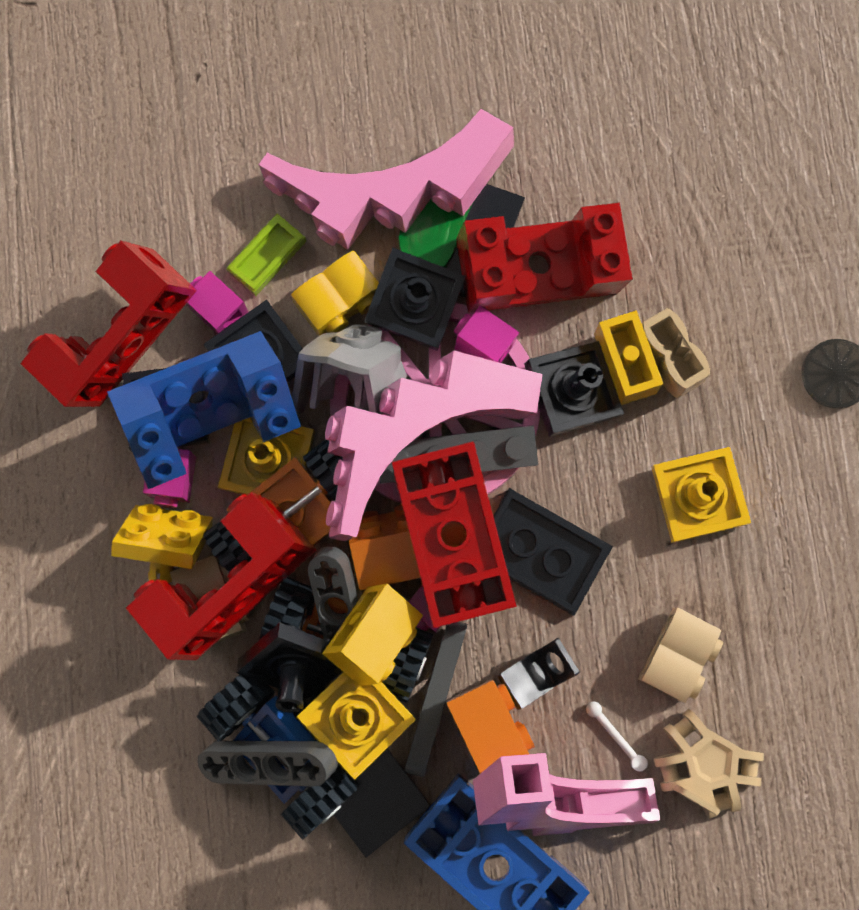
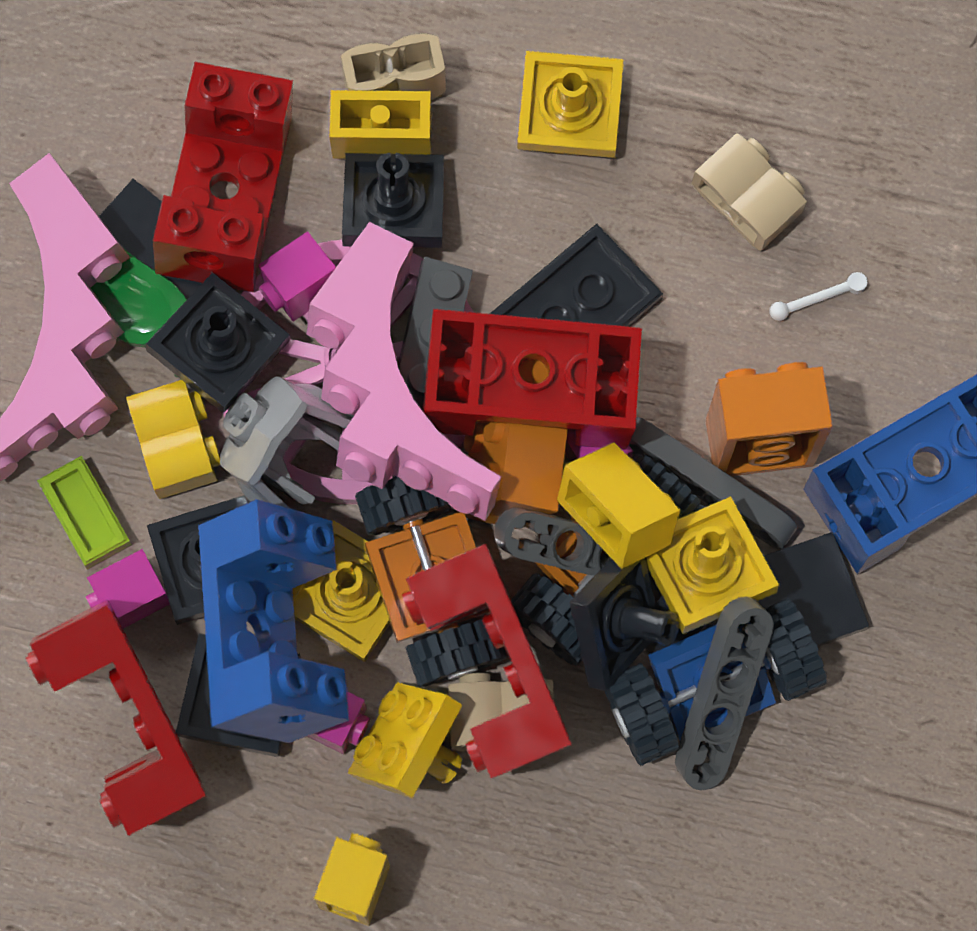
camera: 75 degrees left, 5 degrees down
(47, 534) = (353, 878): none -> yellow brick
(527, 797) = (868, 368): bright pink arch -> none
(537, 674) = (714, 355): black bracket -> none
(711, 765) = (884, 198): tan piece -> none

